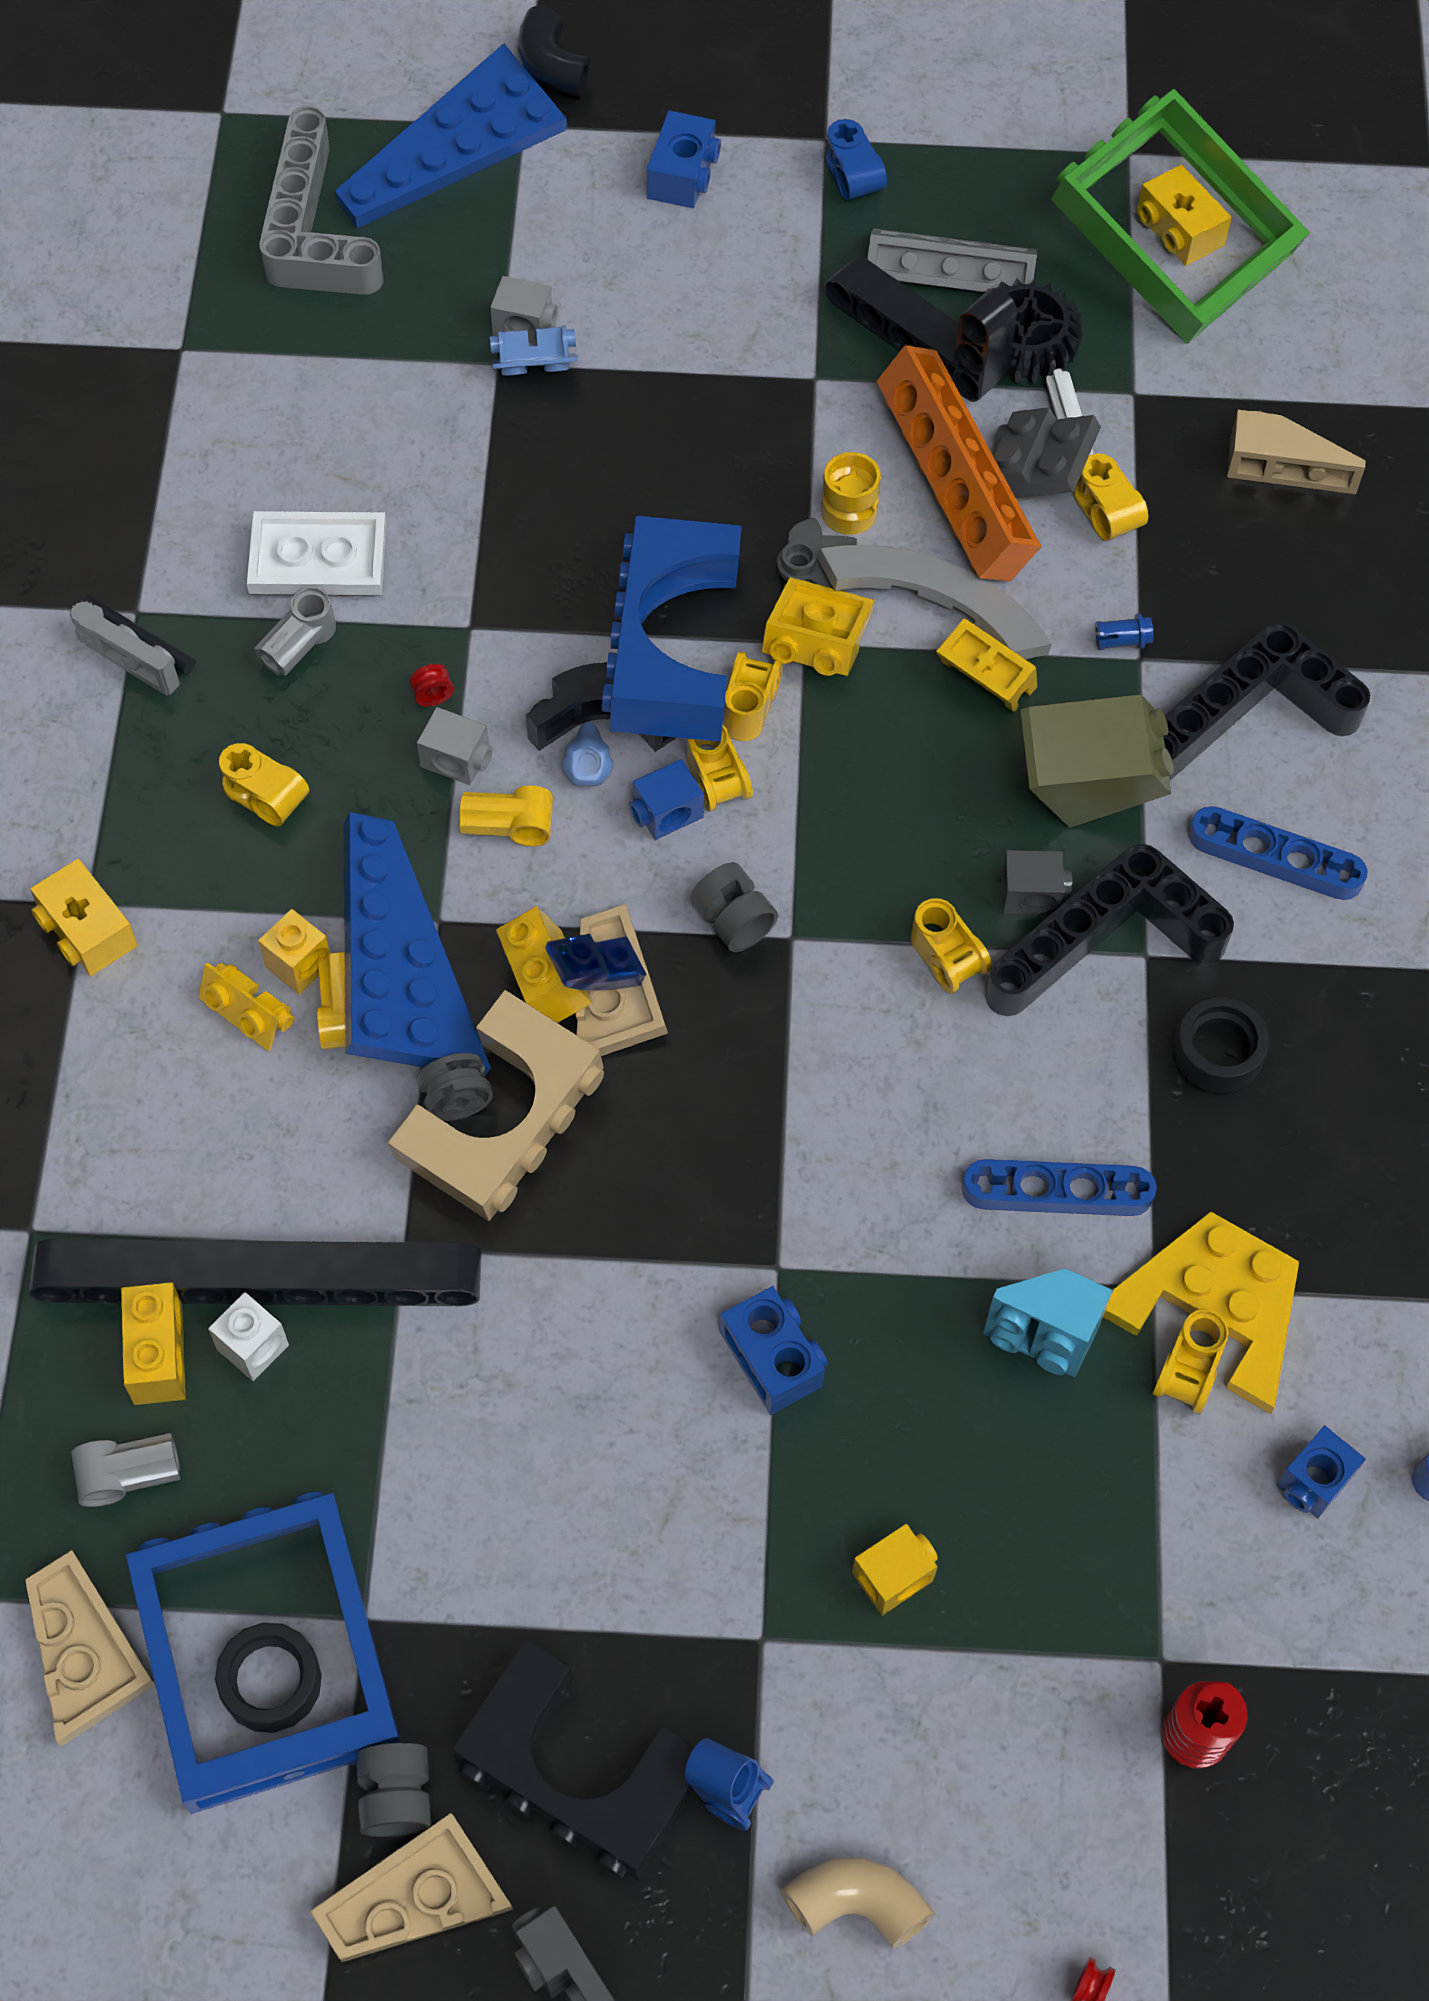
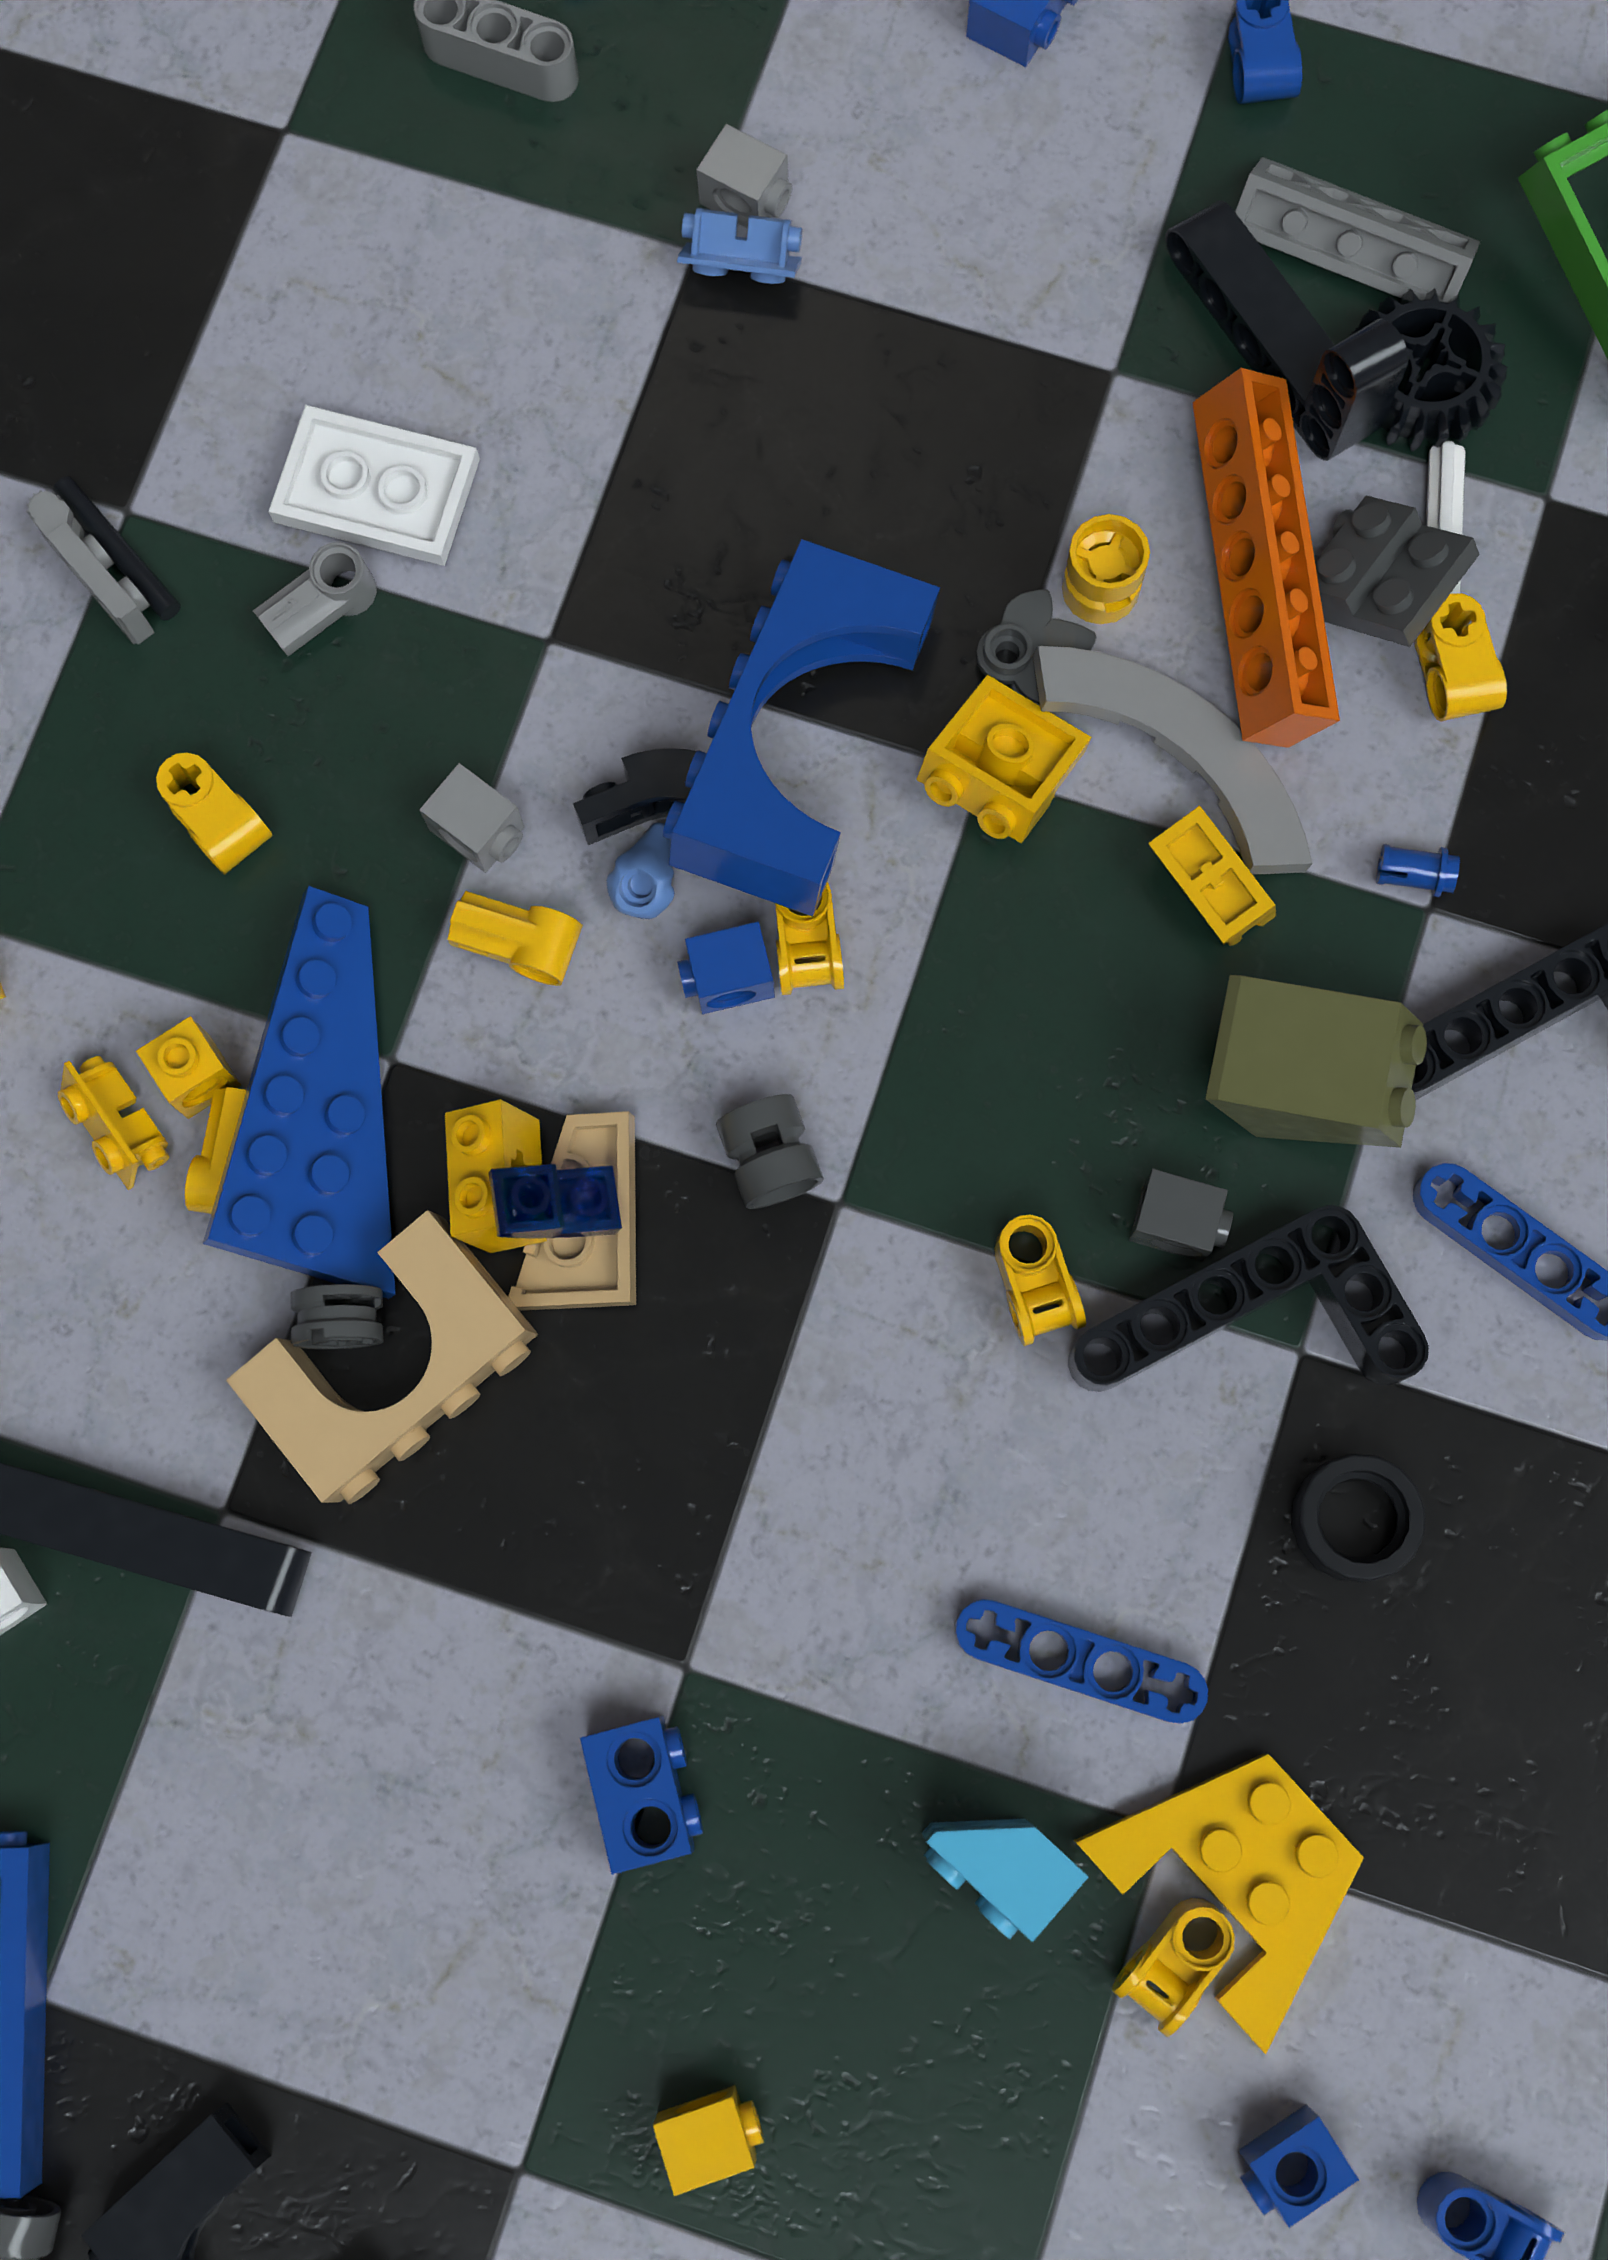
camera: 20 degrees right, 15 degrees up
(431, 685) = (469, 720): red bush -> none
(750, 689) = (888, 828): yellow piece -> none

